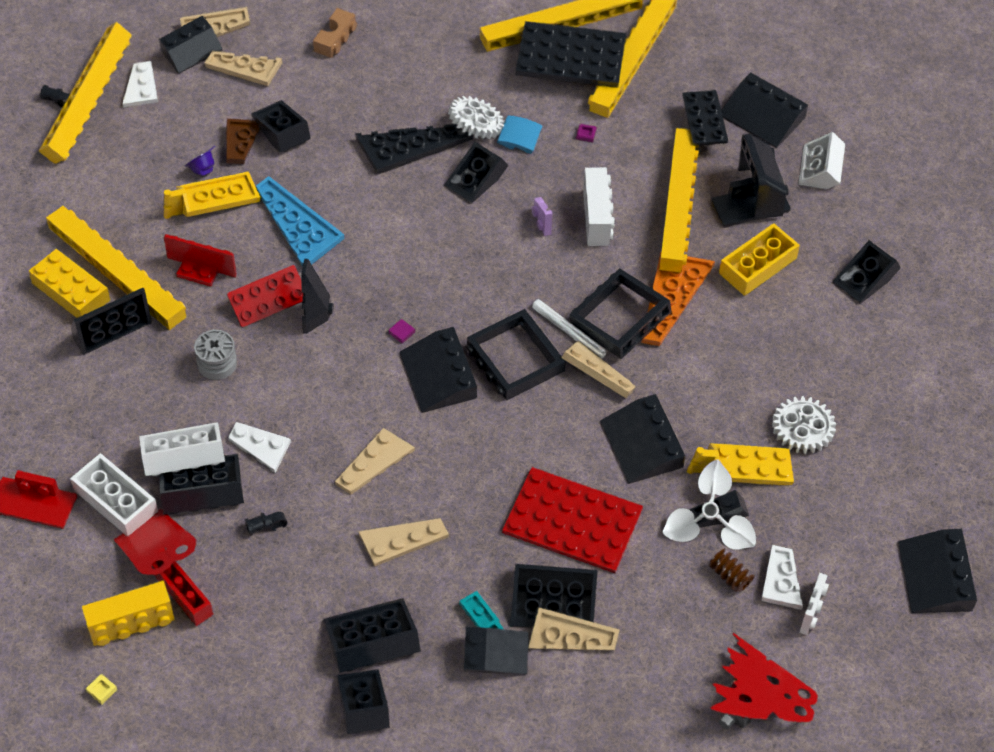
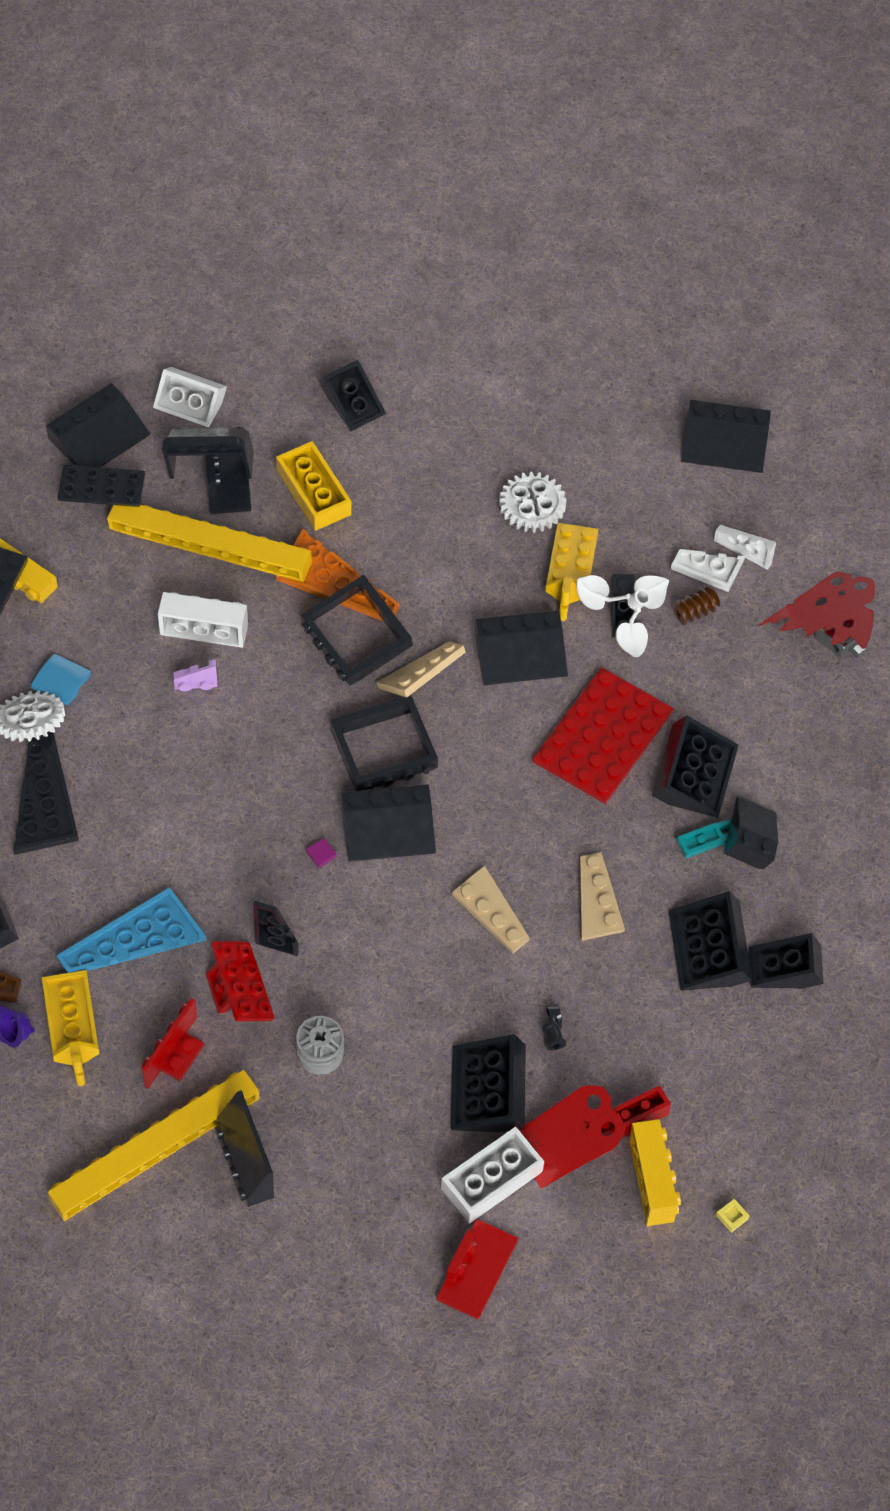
camera: 80 degrees left, 5 degrees up
(68, 284) = (172, 1198): yellow brick -> none
(181, 449) = (448, 1094): white brick -> none
(263, 445) = (446, 1019): white wing -> none
(476, 172) = (112, 735): black slope -> none
(562, 631) = (739, 763): tan wing -> none
(568, 328) = (355, 688): white axle -> none
(586, 132) = (76, 612): magenta tile -> none

